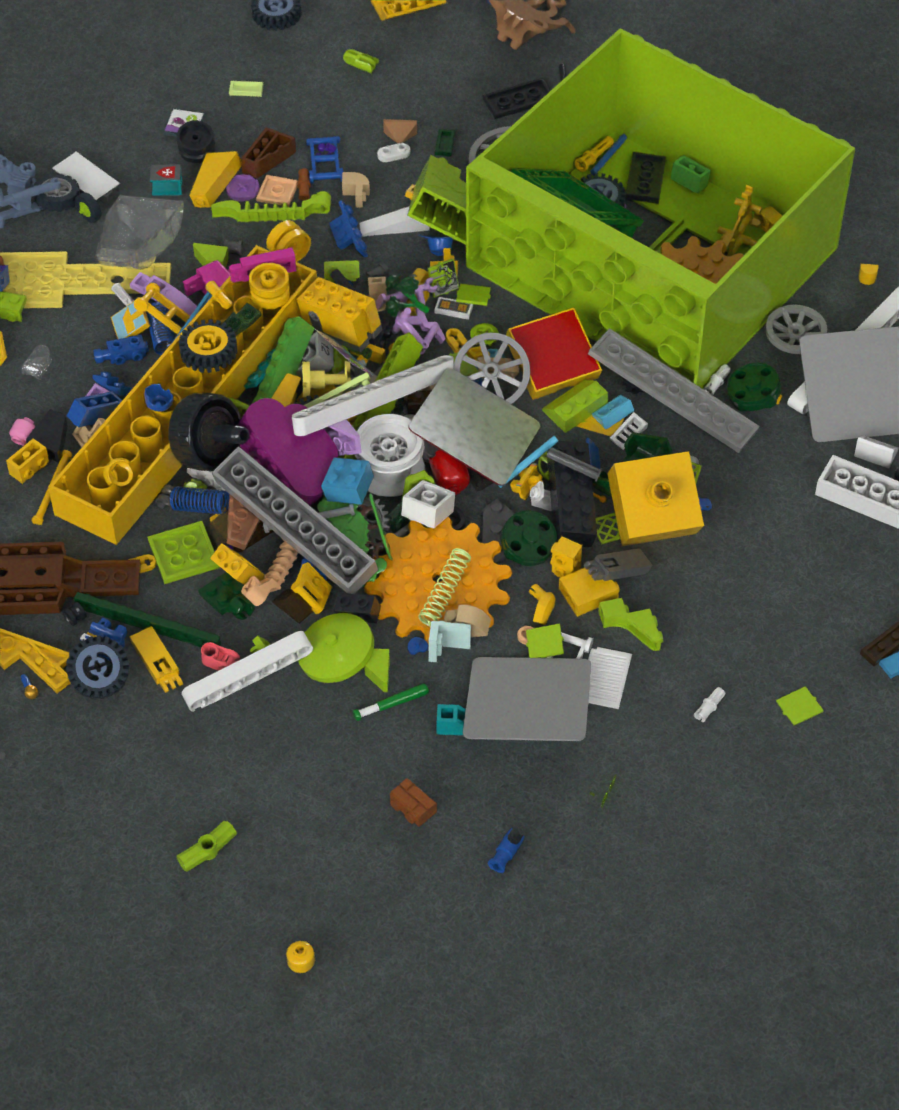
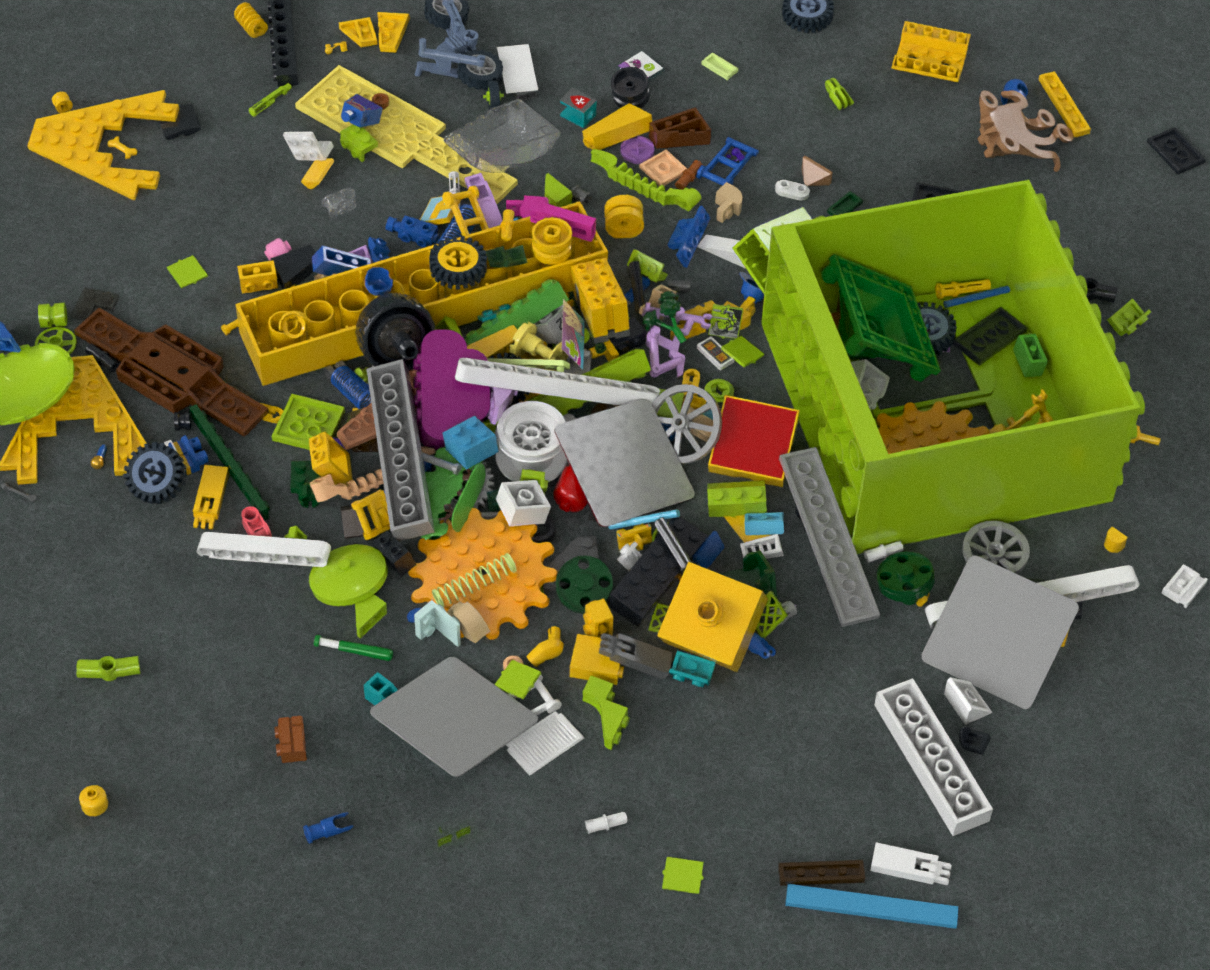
camera: 35 degrees right, 0 degrees up
(665, 550) = (692, 668): none -> teal bracket

